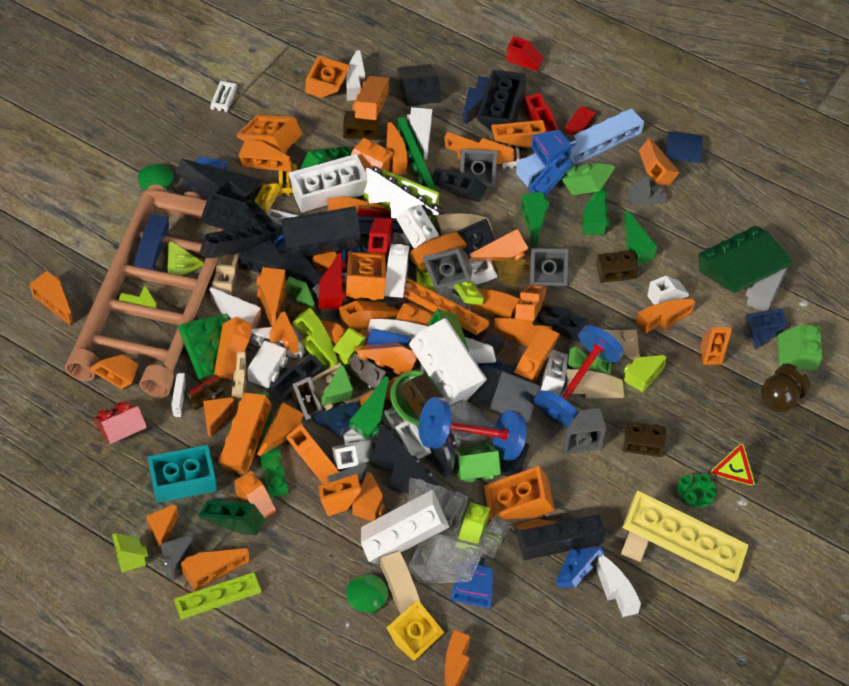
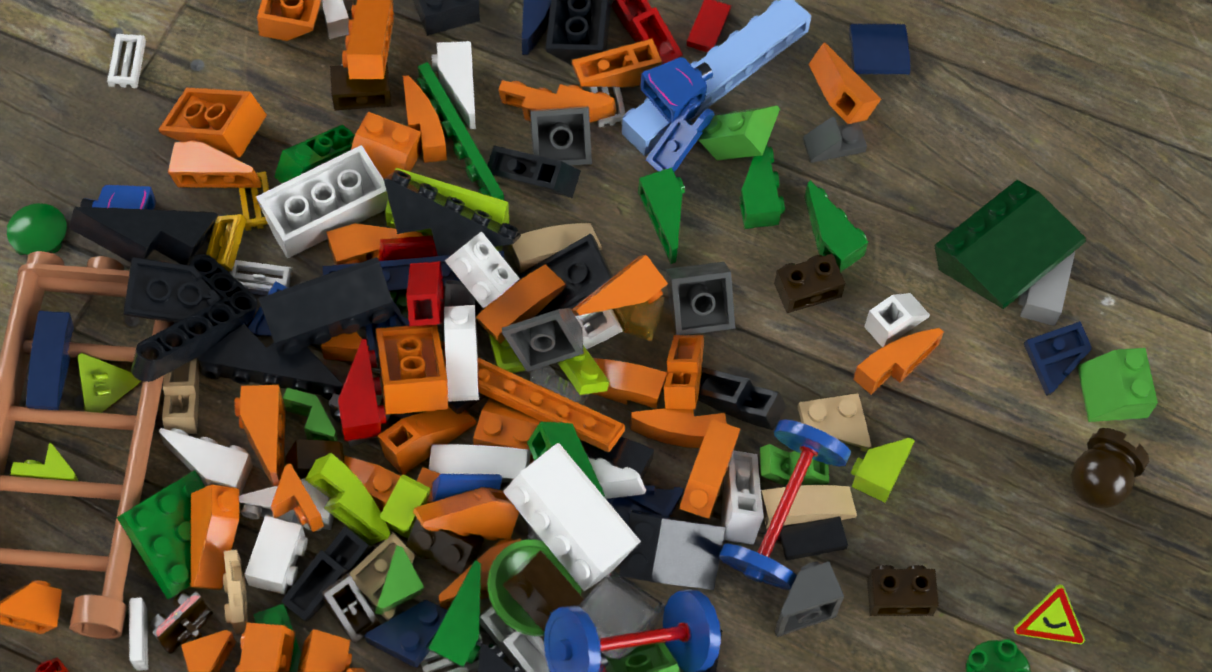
camera: 10 degrees left, 10 degrees up
(602, 401) = (813, 538): none -> black tile
(714, 345) = (987, 408): orange slope -> none

